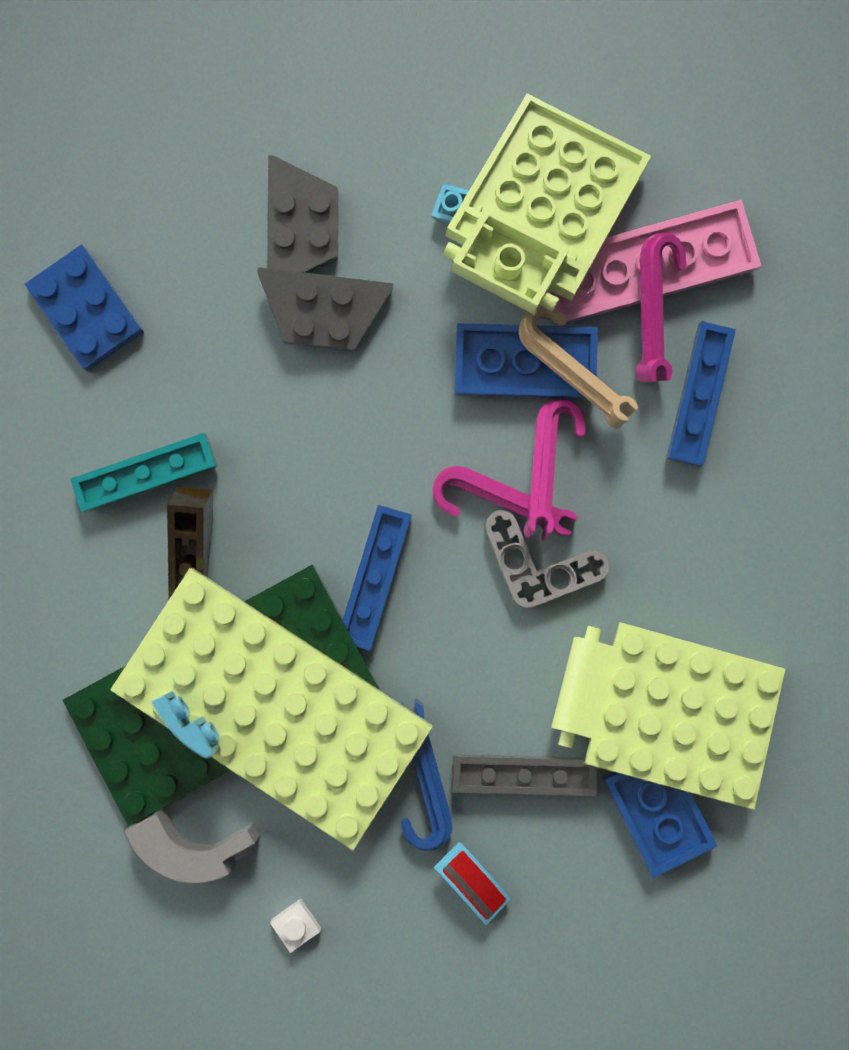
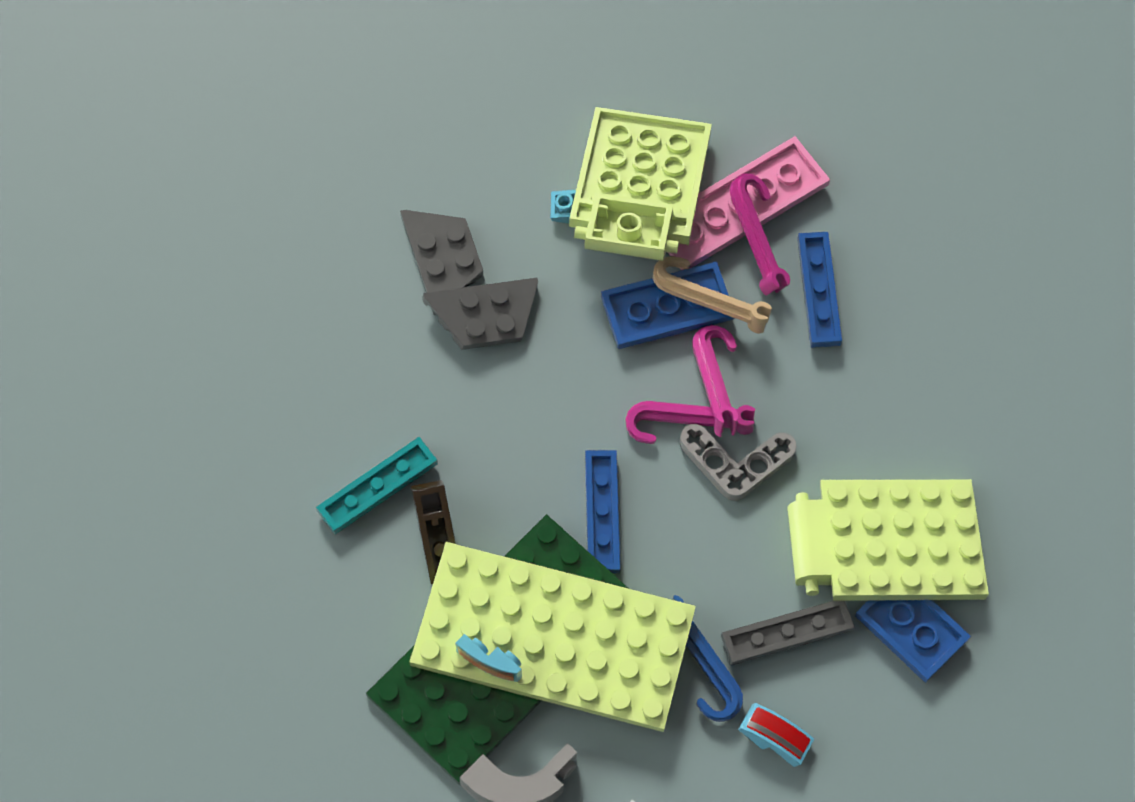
camera: 25 degrees left, 20 degrees down
(83, 307) = (282, 372): blue plate -> none

